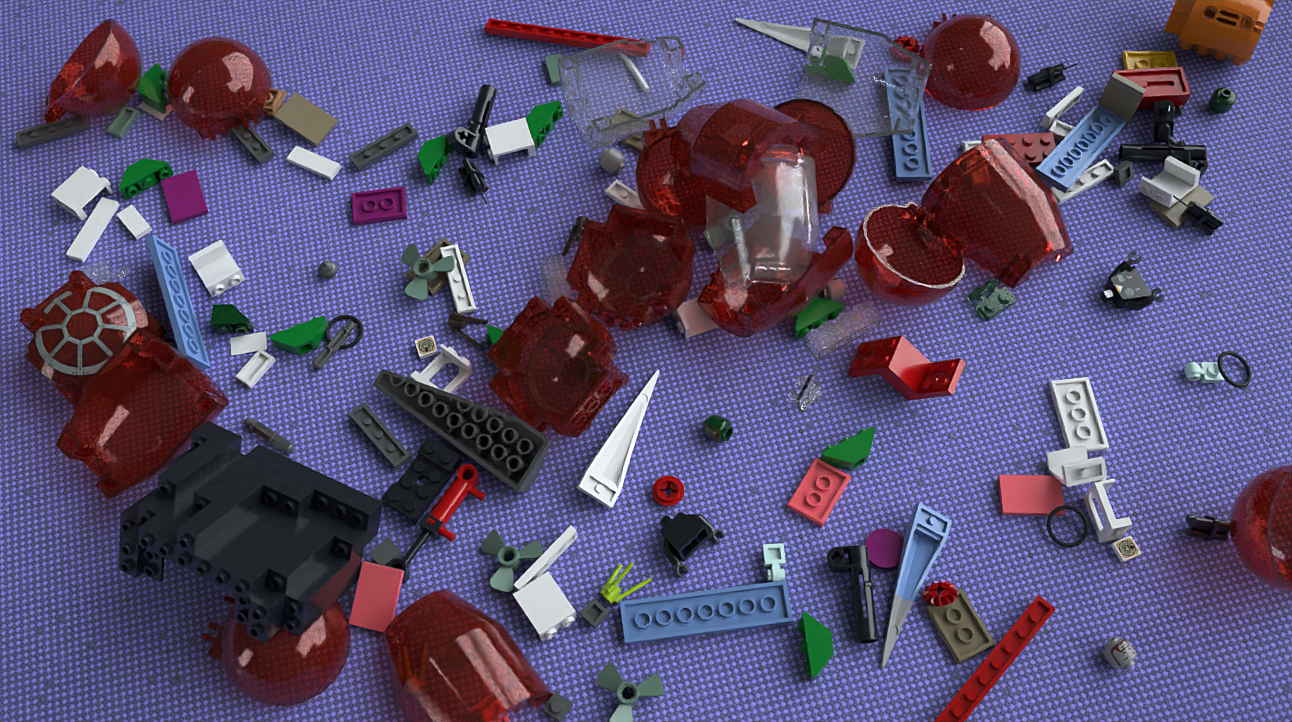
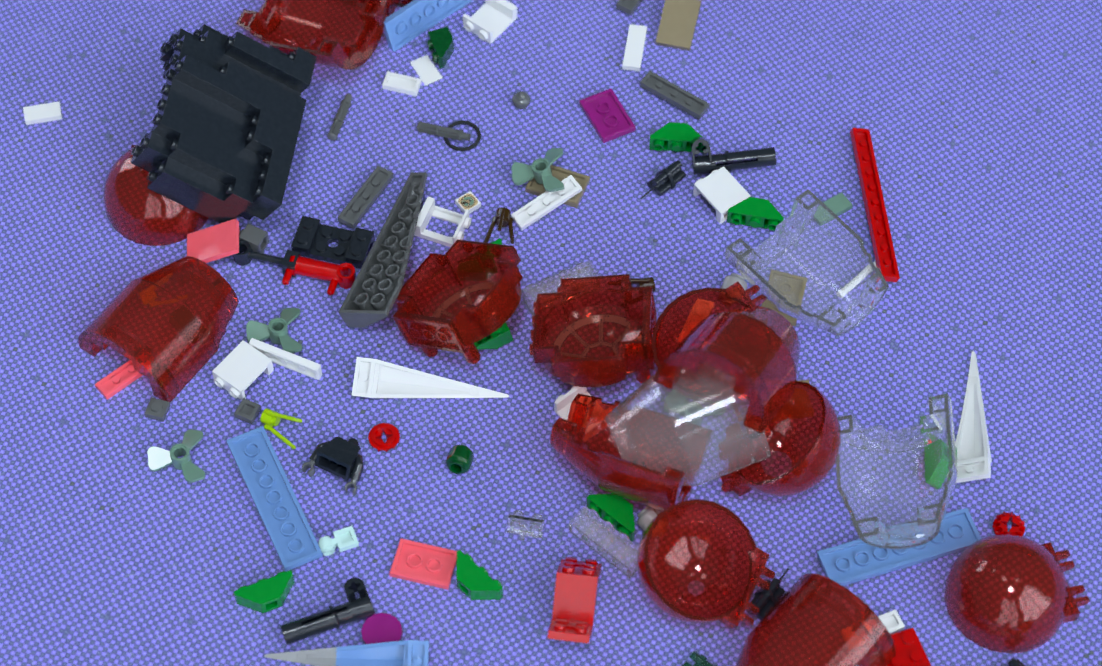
camera: 70 degrees right, 5 degrees down
(301, 337) = (443, 105): green slope -> none

